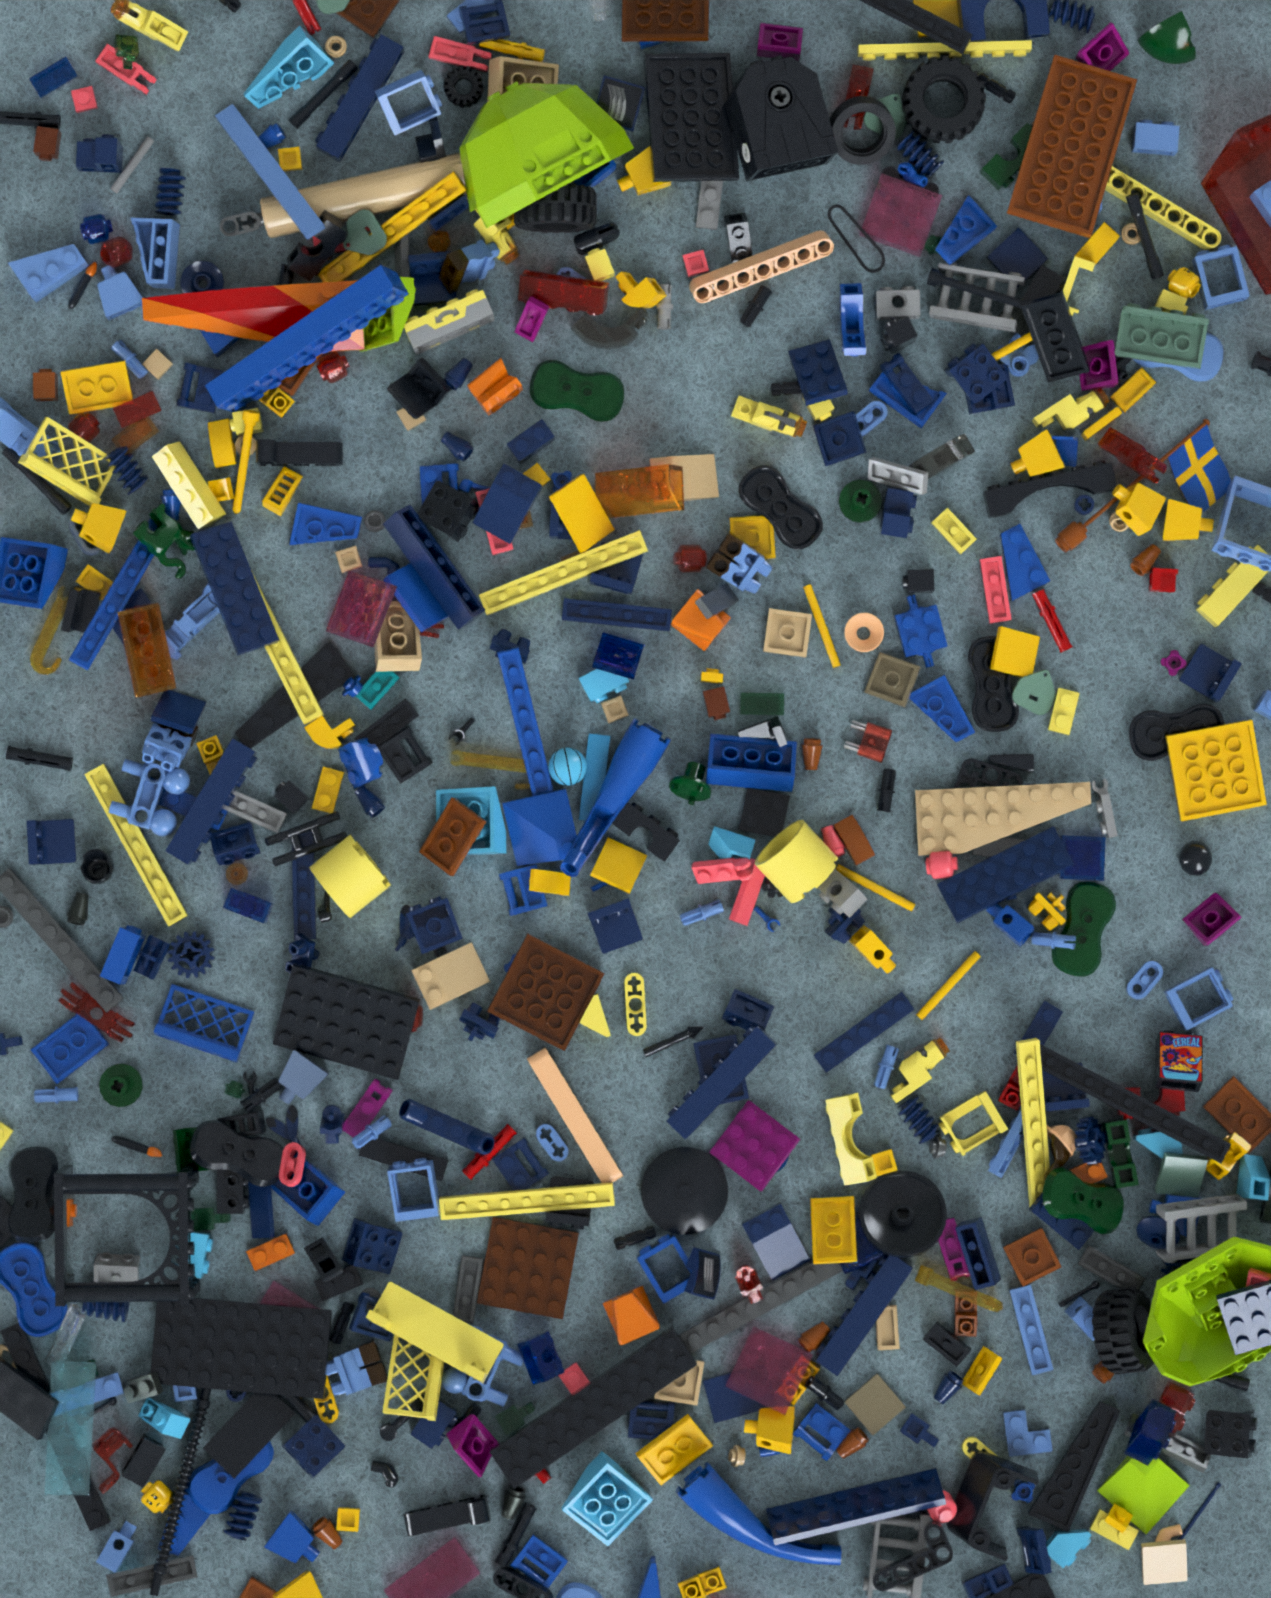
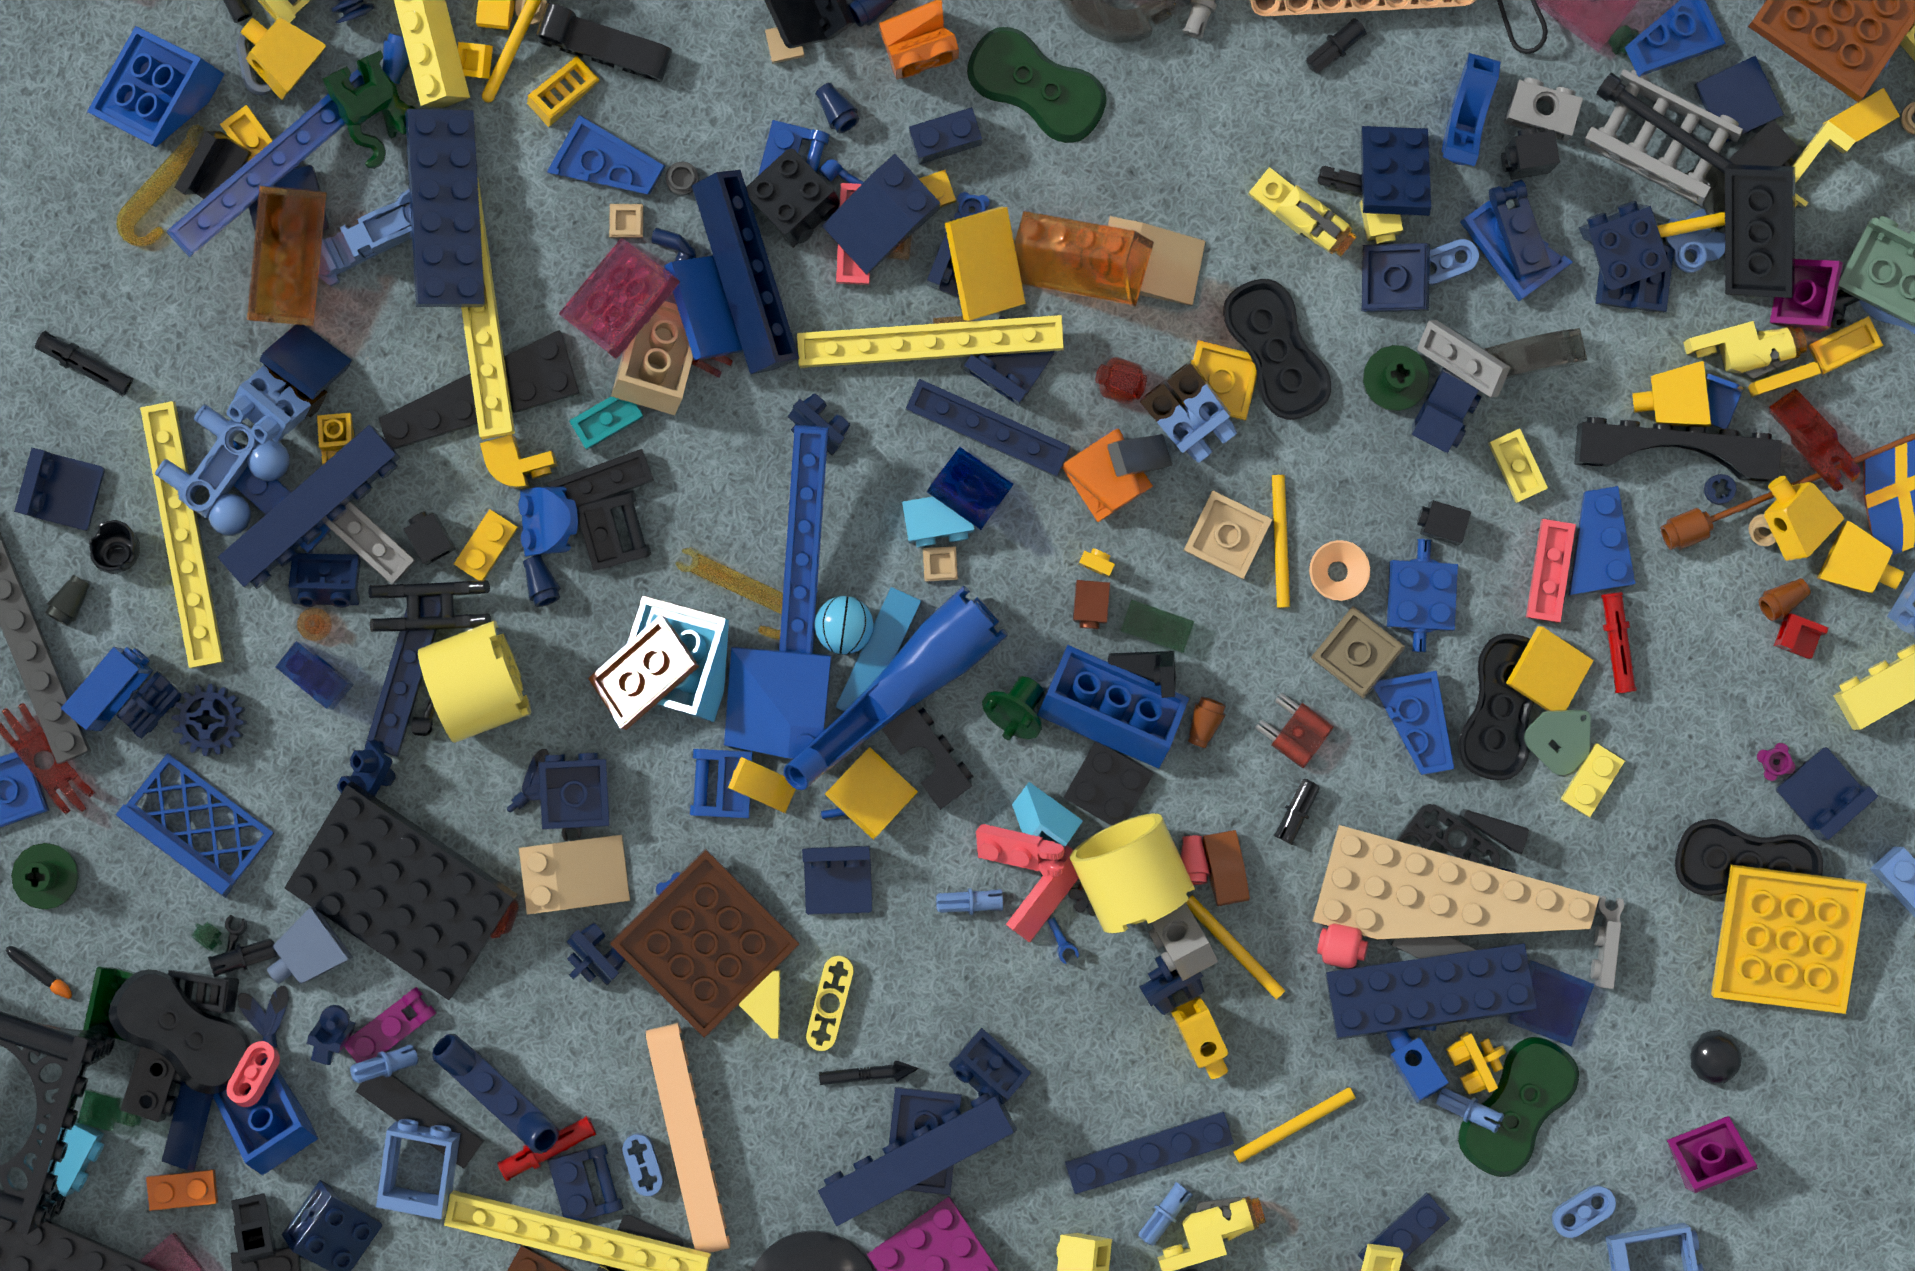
camera: 20 degrees right, 0 degrees up
(352, 686) = (570, 407): blue plate -> none
(460, 733) = (705, 525): black hand -> none

